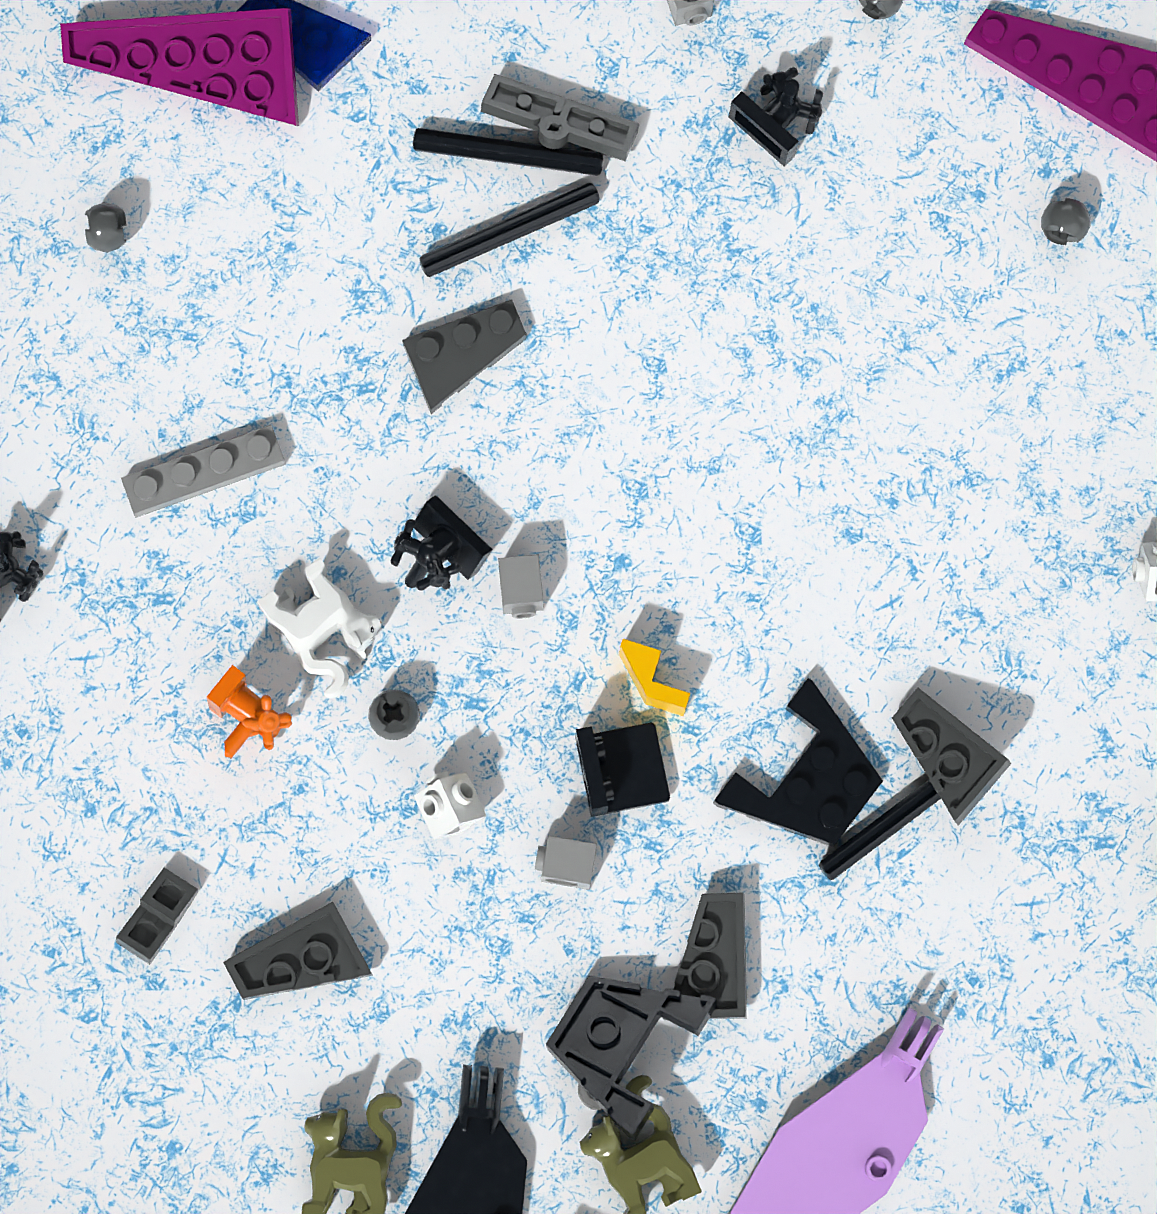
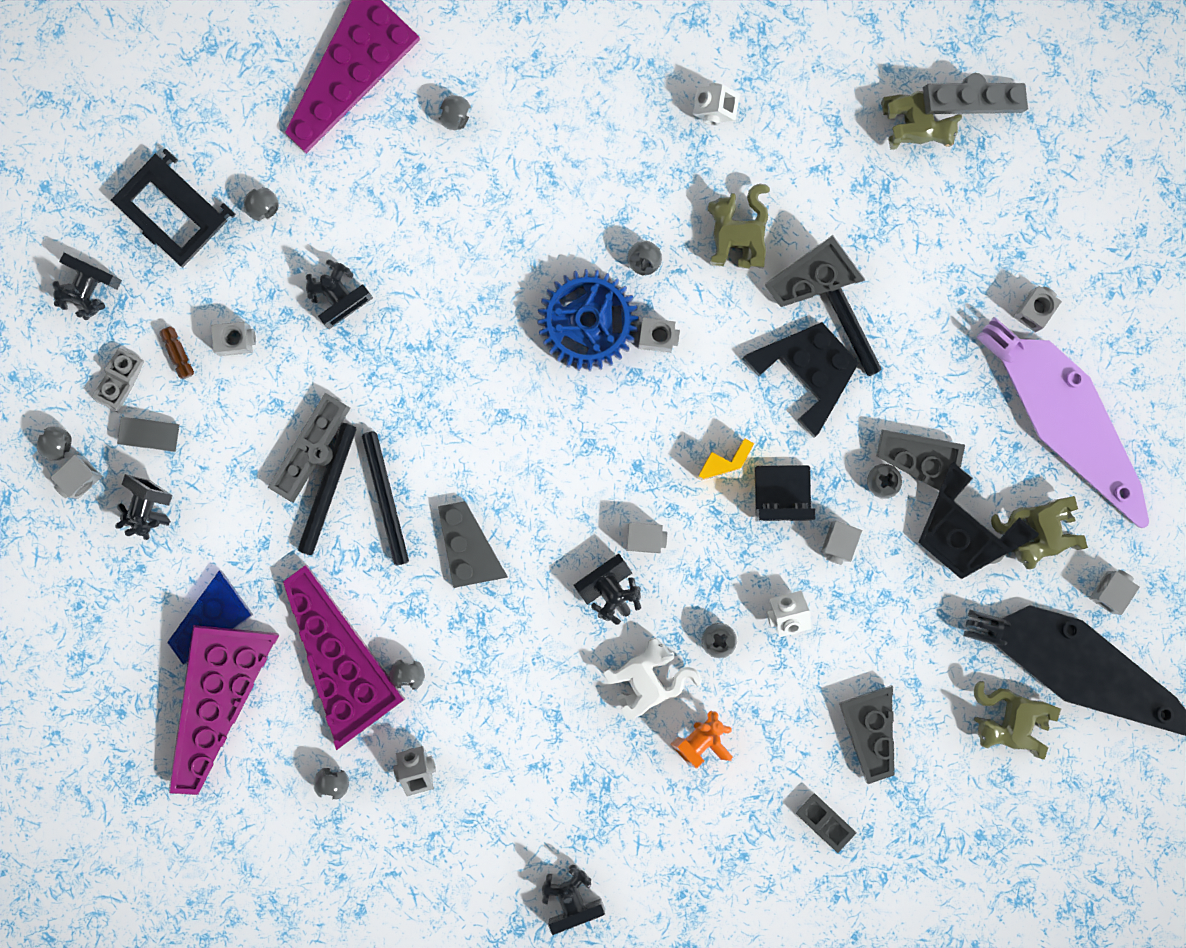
camera: 75 degrees left, 10 degrees up
(140, 331) = (414, 770): none -> light grey brick
(203, 471) = (521, 742): light grey plate -> none
(266, 216) = (344, 669): none -> magenta wing
(271, 299) = (407, 674): none -> dark grey piece
(662, 896) = (894, 479): none -> dark grey piece
(793, 471) = (599, 338): none -> blue gear
(813, 535) = (648, 343): none -> light grey brick
(919, 513) = (644, 258): none -> dark grey piece
(953, 1095) = (1029, 316): none -> light grey brick
(983, 638) = (740, 234): none -> olive animal

